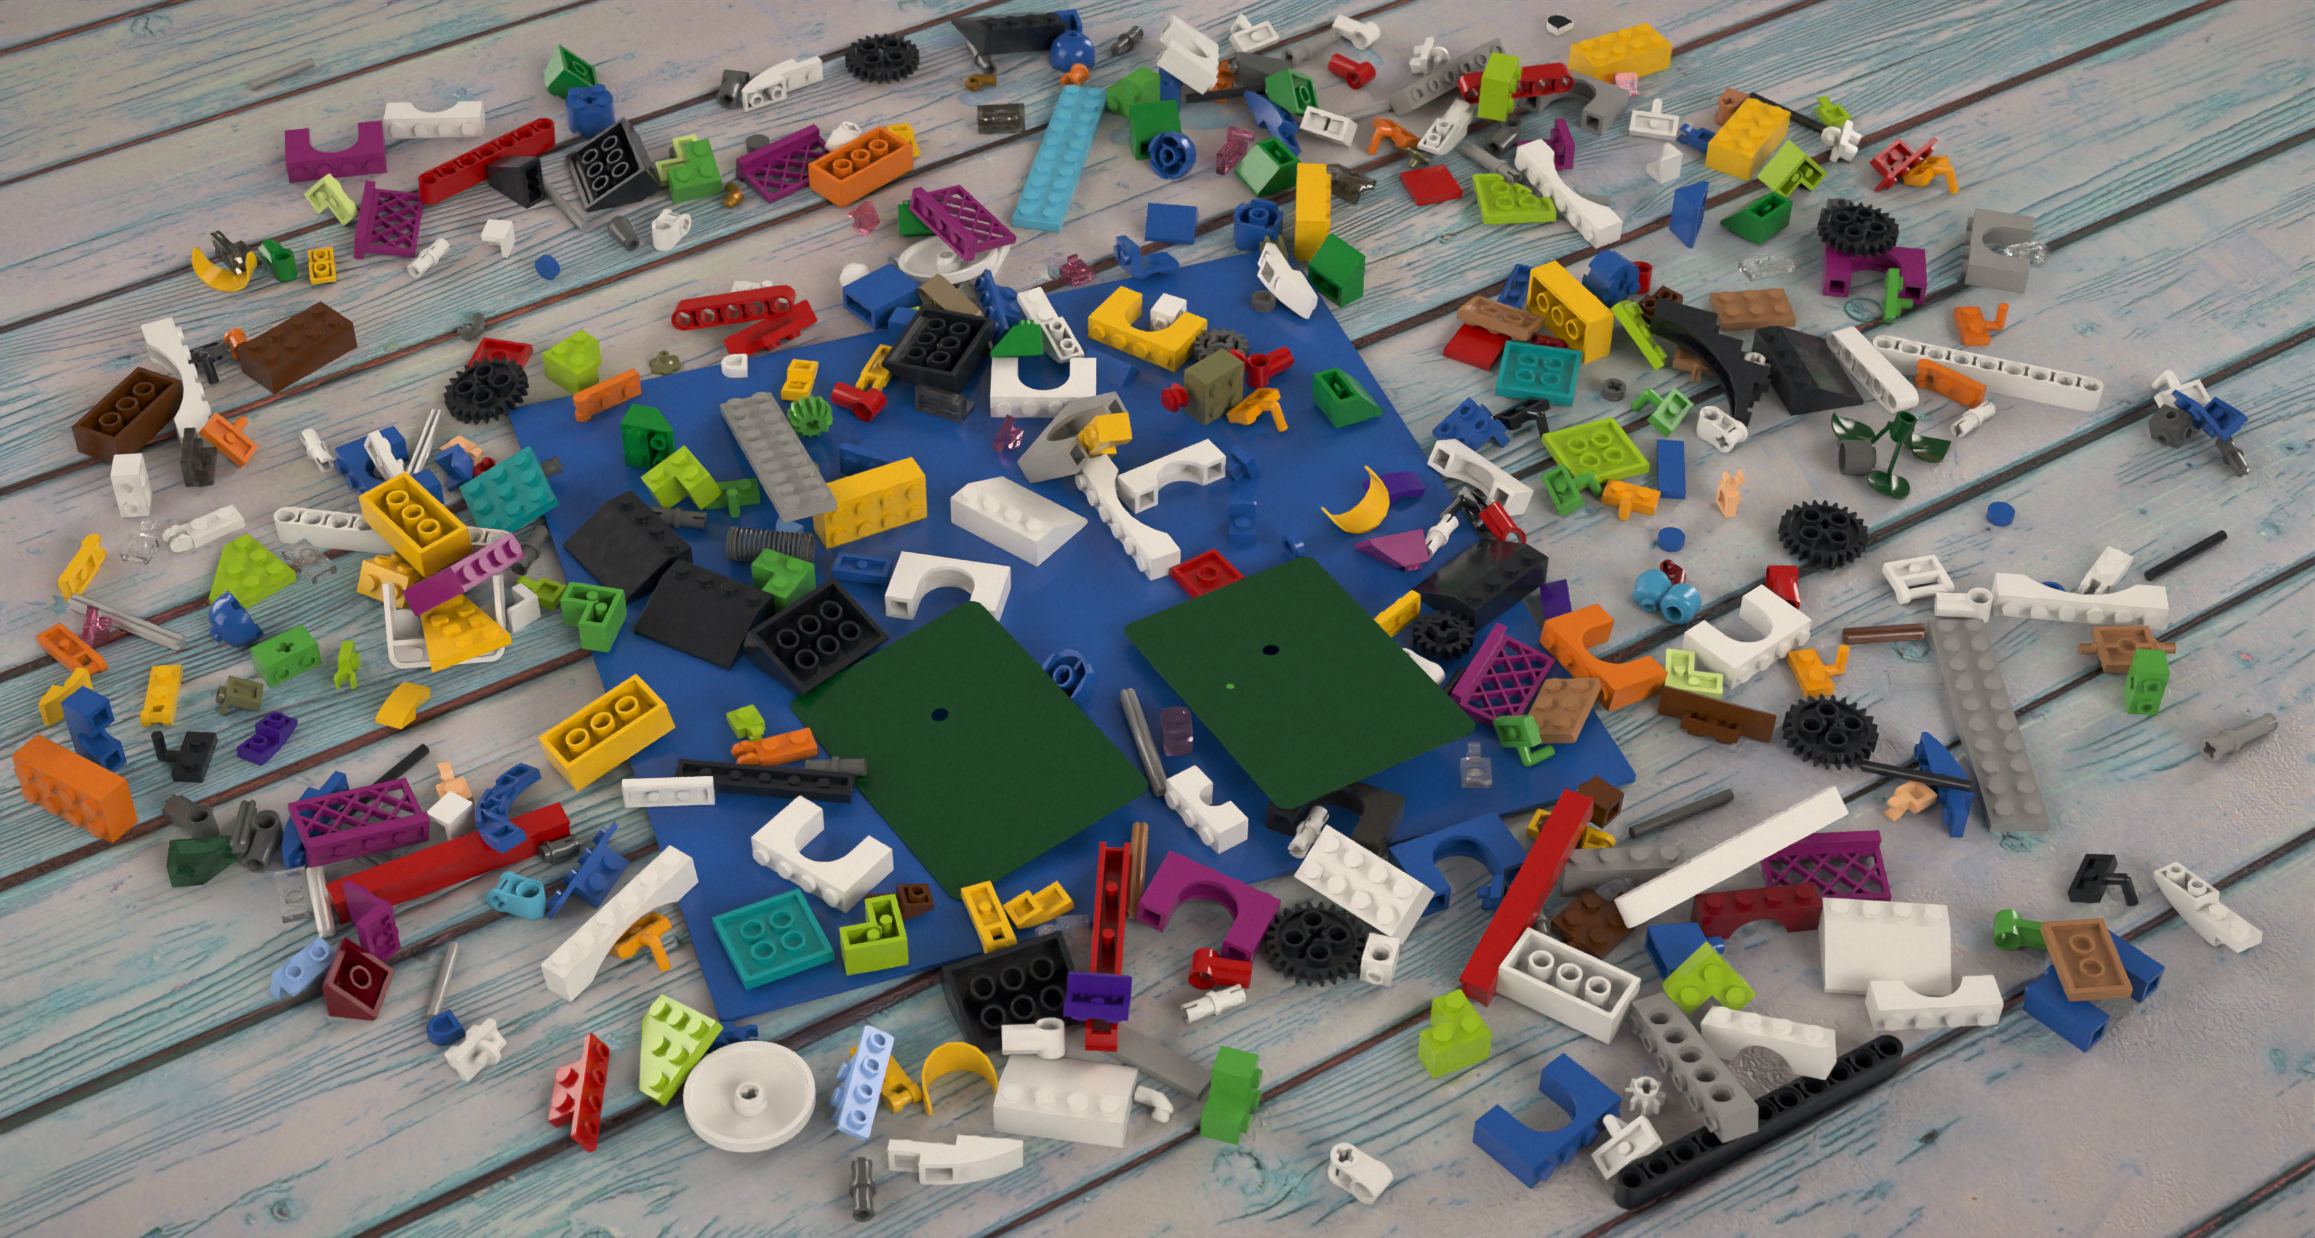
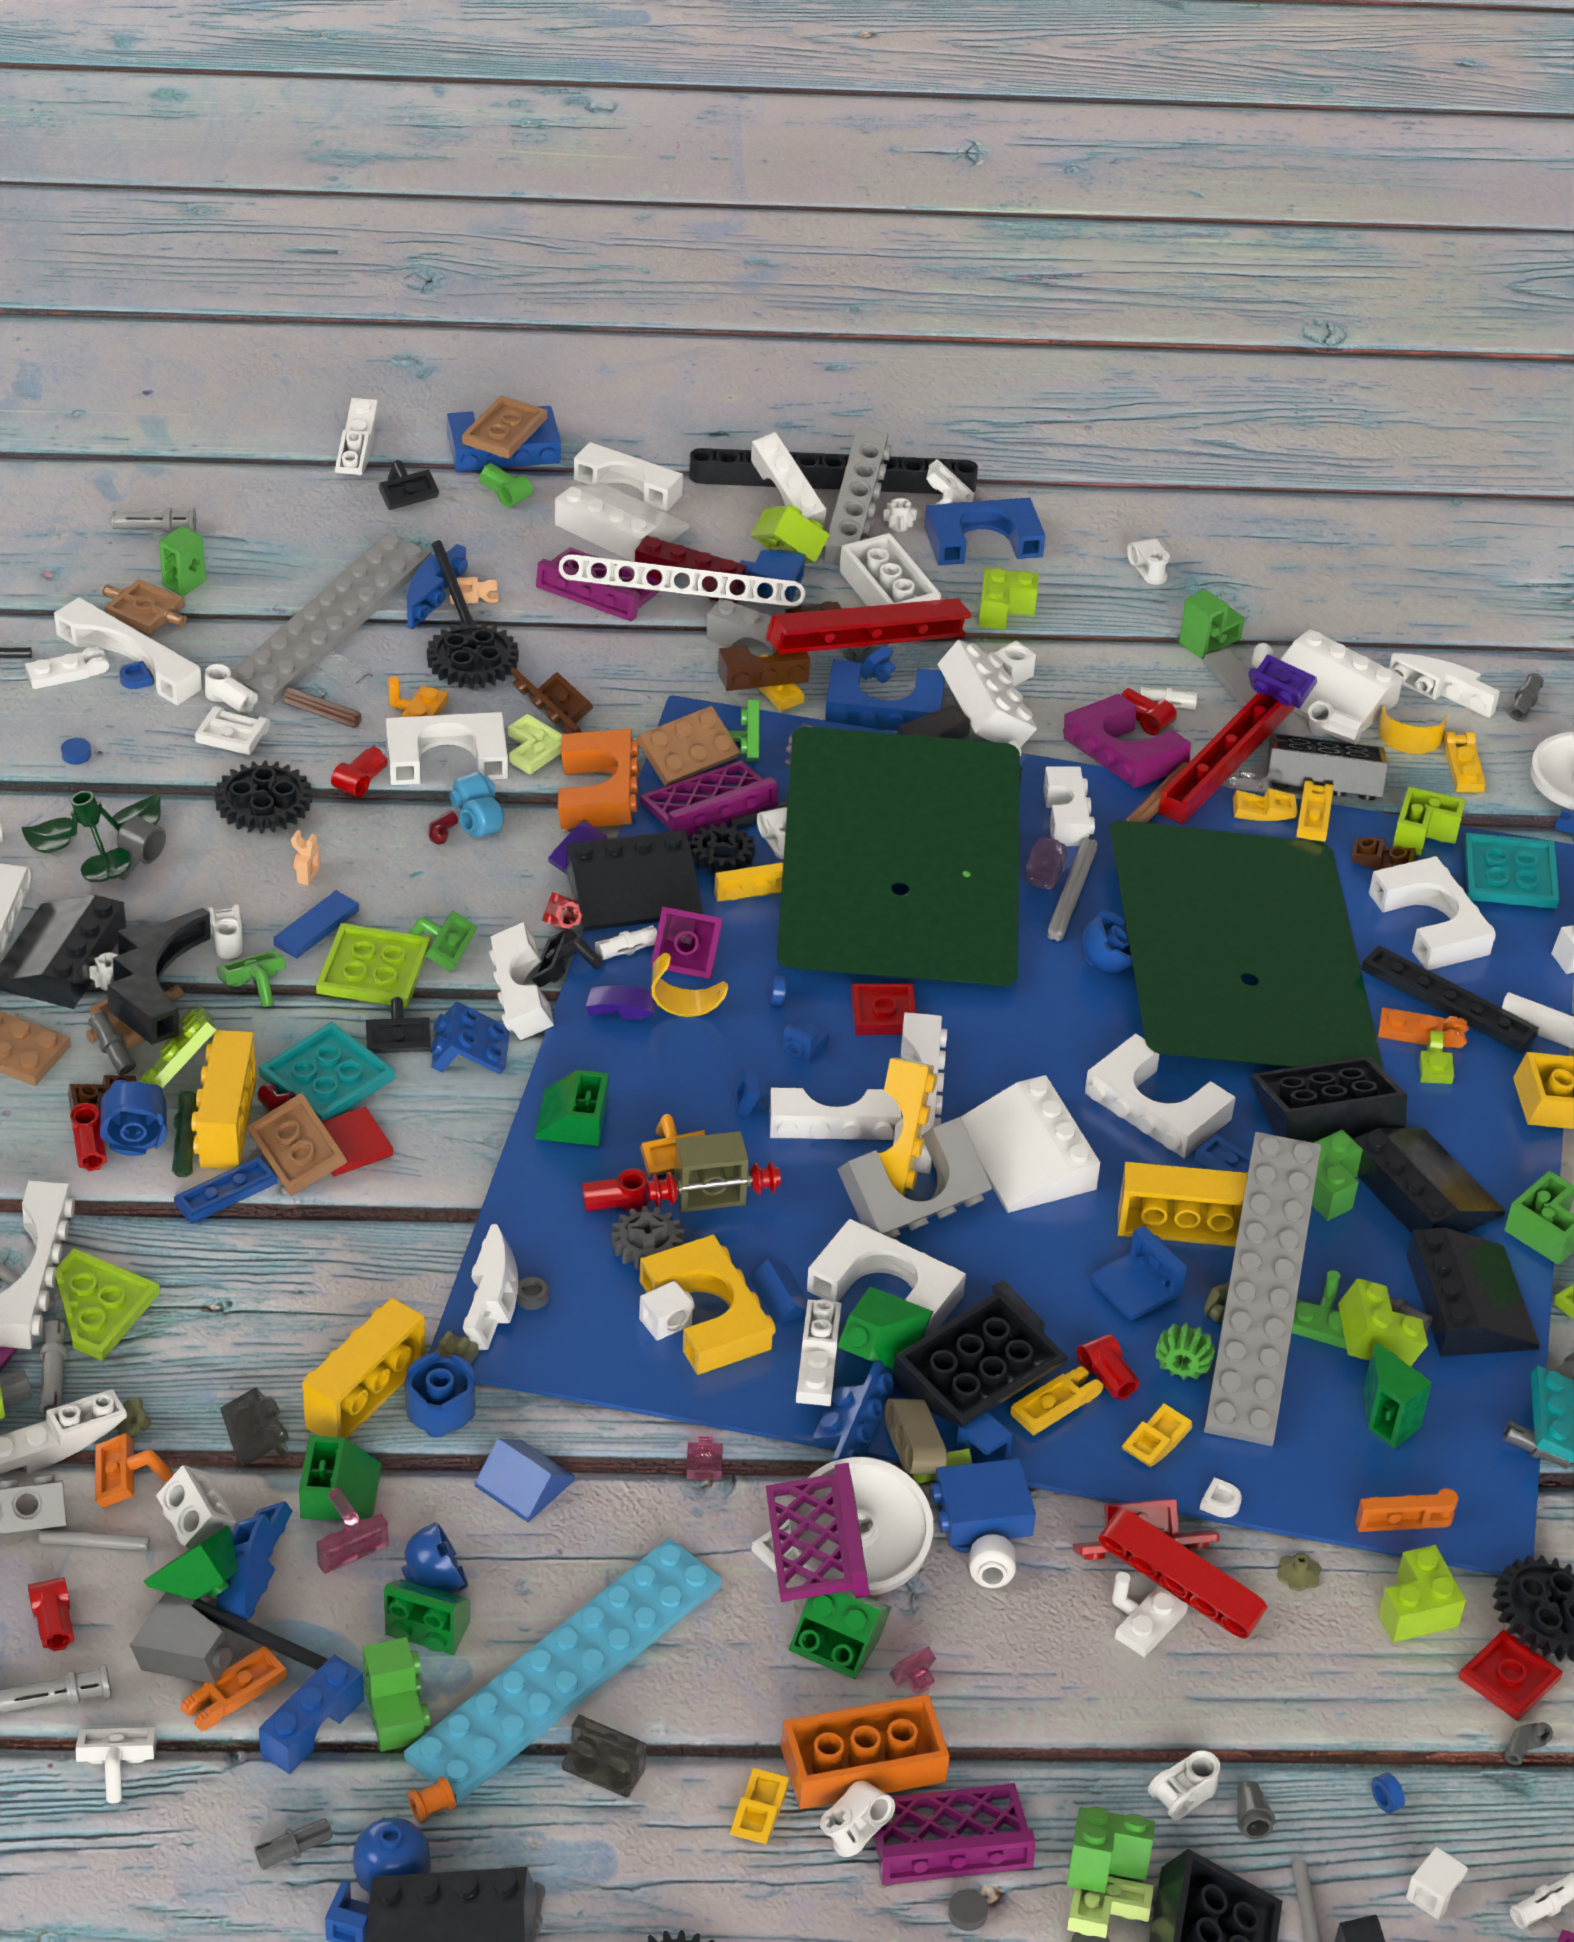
camera: 150 degrees left, 0 degrees up
(734, 196) = (1065, 1805): pearl gold arm -> none
(734, 540) = (1354, 1235): dark grey piece -> none
(853, 766) = (1375, 982): dark grey pin -> none
(861, 1084) = (1496, 747): light blue bracket -> none
(977, 81) = (566, 1878): pearl gold arm -> none
(1007, 434) = (973, 1242): clear pink tile -> none
(1141, 266) = (618, 1409): blue bracket -> none
(1189, 55) = (289, 1655): white arch -> none
(1315, 944) = (1054, 692): black gear -> none
(1338, 271) = (417, 1274): green slope -> none
(1431, 185) = (157, 1378): red tile -> none
(1613, 390) = (266, 1033): dark grey bush -> none
(1630, 498) = (387, 914): light orange plate -> none
(1671, 539) = (400, 862): blue tile -> none
(1681, 813) = (660, 664): dark grey bar -> none

